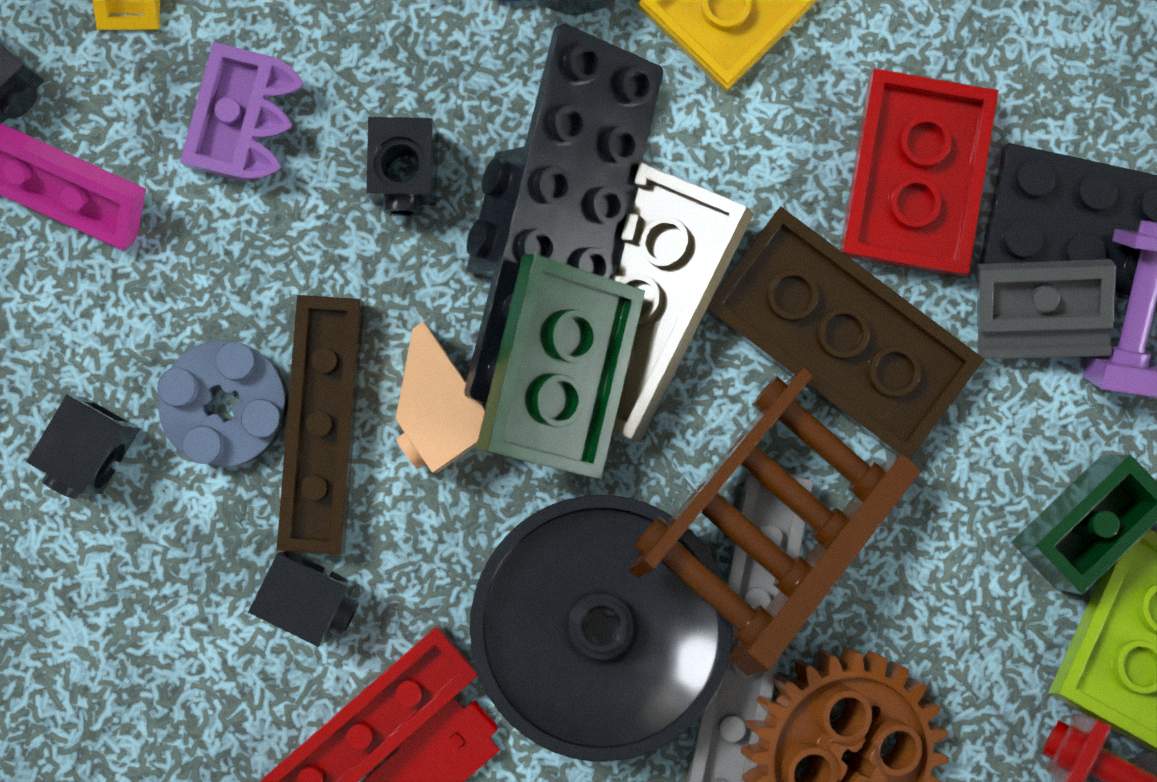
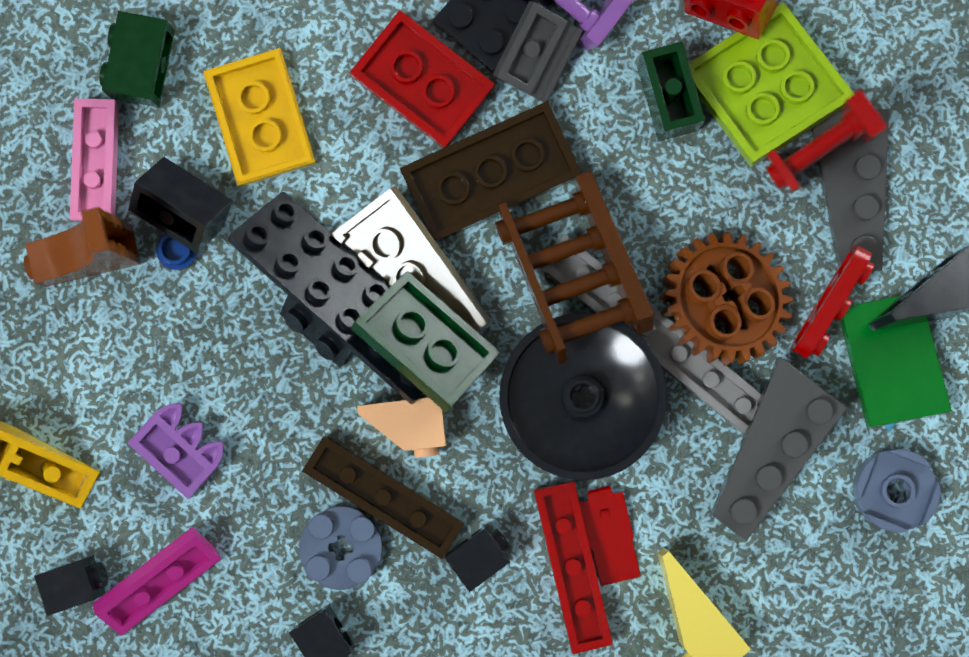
camera: 60 degrees left, 0 degrees up
(397, 138) = (241, 365): black brick -> none

